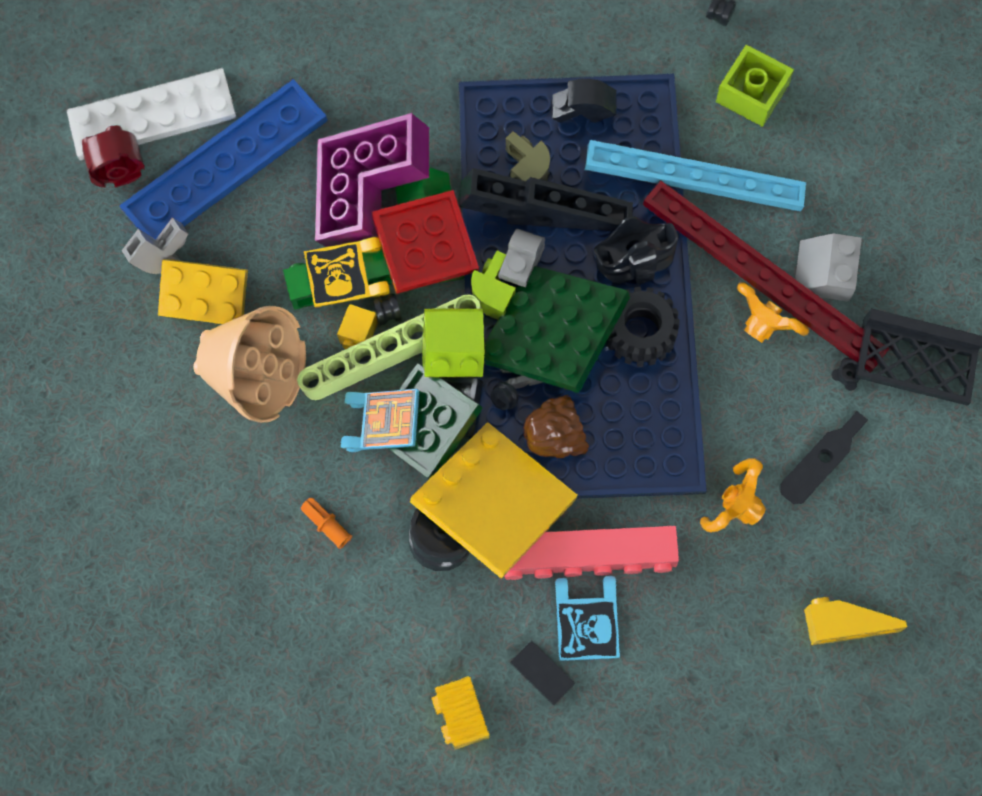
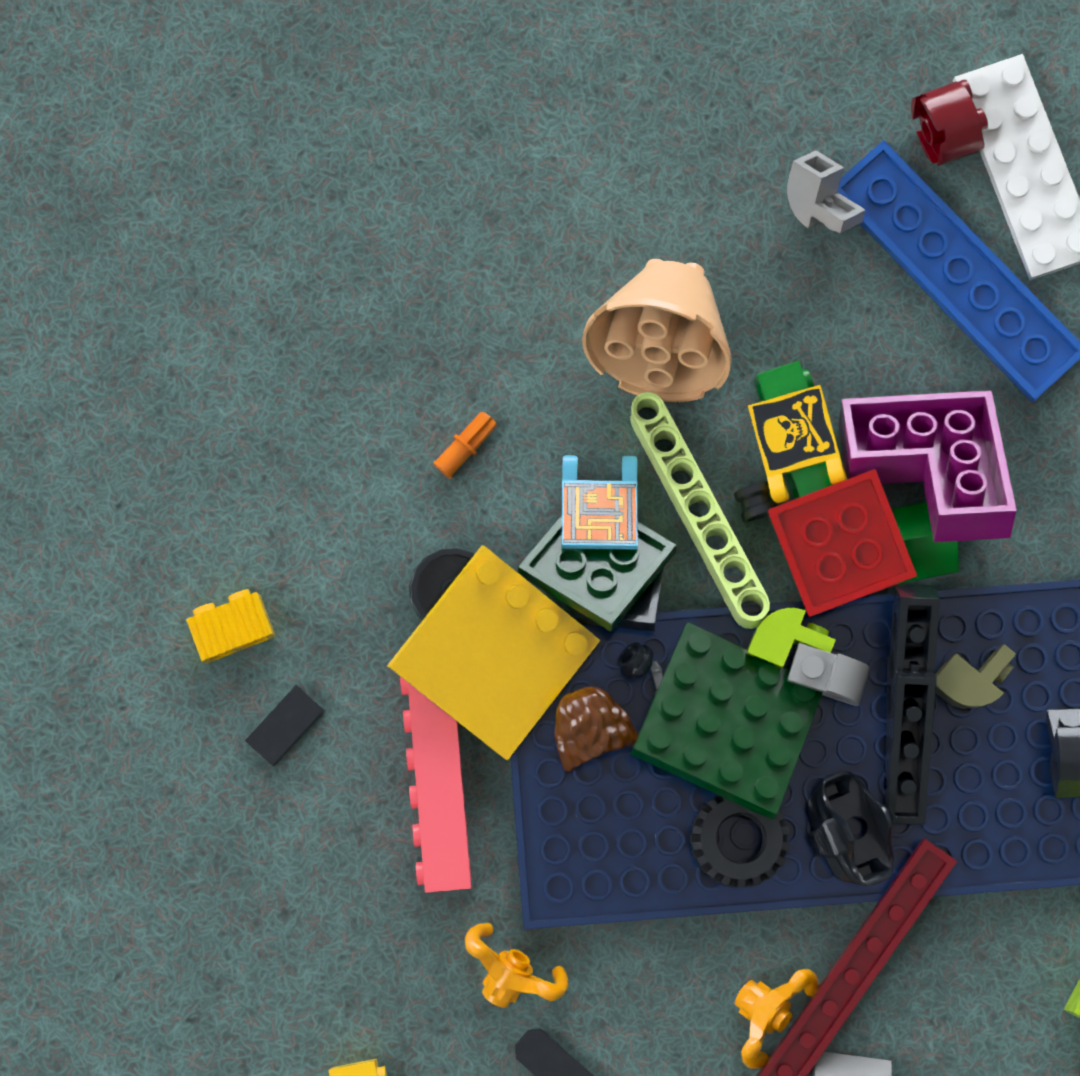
camera: 85 degrees right, 10 degrees up
(201, 291) = (765, 260): yellow plate -> none
(356, 326) = (725, 464): yellow brick -> none
(453, 343) = (697, 588): lime slope -> none
(587, 625) = (346, 781): flag -> none
(695, 175) = (971, 912): medium azure plate -> none

